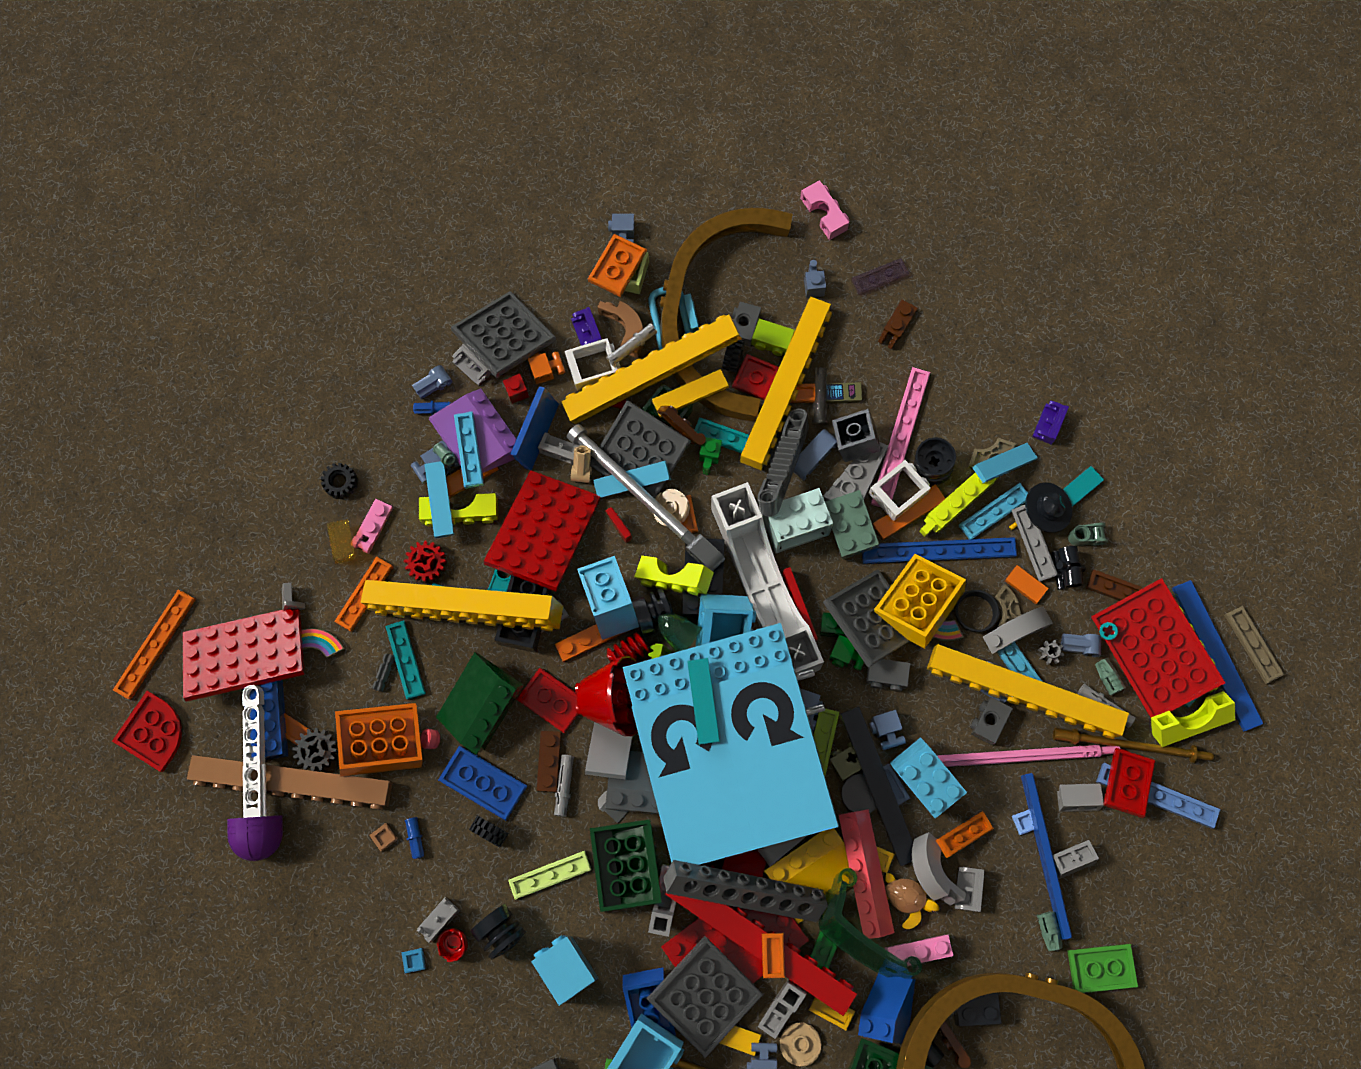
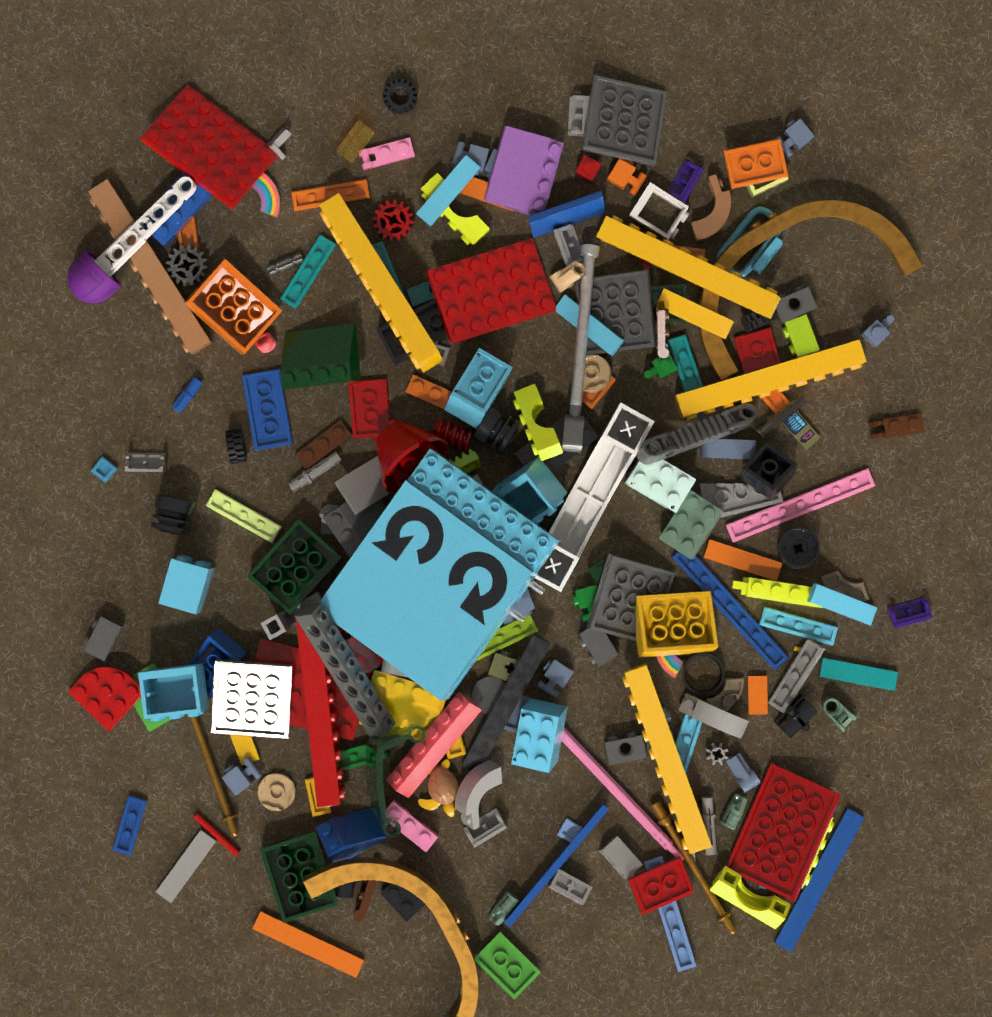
camera: 50 degrees right, 15 degrees up
(151, 732) = (98, 130): red plate -> none
(154, 645) = (161, 70): orange tile -> none
(383, 837) = (169, 371): medium nougat tile -> none
(429, 408) = (518, 115): blue axle -> none
(435, 380) = (541, 98): sand blue piece -> none
(447, 457) = (486, 163): sand green pin -> none
(449, 938) = (142, 483): red hair -> none
(468, 450) = (504, 180): medium azure tile -> none
(619, 525) = (545, 344): red tile -> none
(637, 340) = (706, 234): light grey pin -> none
(678, 631) = (494, 464): clear green helmet -> none
(703, 701) = (451, 530): teal tile -> none
(773, 955) = (317, 725): orange tile -> none
(781, 1008) = (294, 759): light grey arch -> none
(797, 598) = (596, 535): red tile -> none
(818, 197) = (957, 272): bright pink arch -> none
(880, 276) = (928, 379): tile -> none
(886, 503) = (732, 539): white window -> none
(964, 834) = (522, 794): orange tile -> none
(1048, 507) = (833, 665): black hat -> none
(1110, 586) = (809, 761): reddish brown plate -> none
(1110, 637) = (766, 790): teal bush -> none
(1254, 644) = (851, 902): dark tan tile -> none

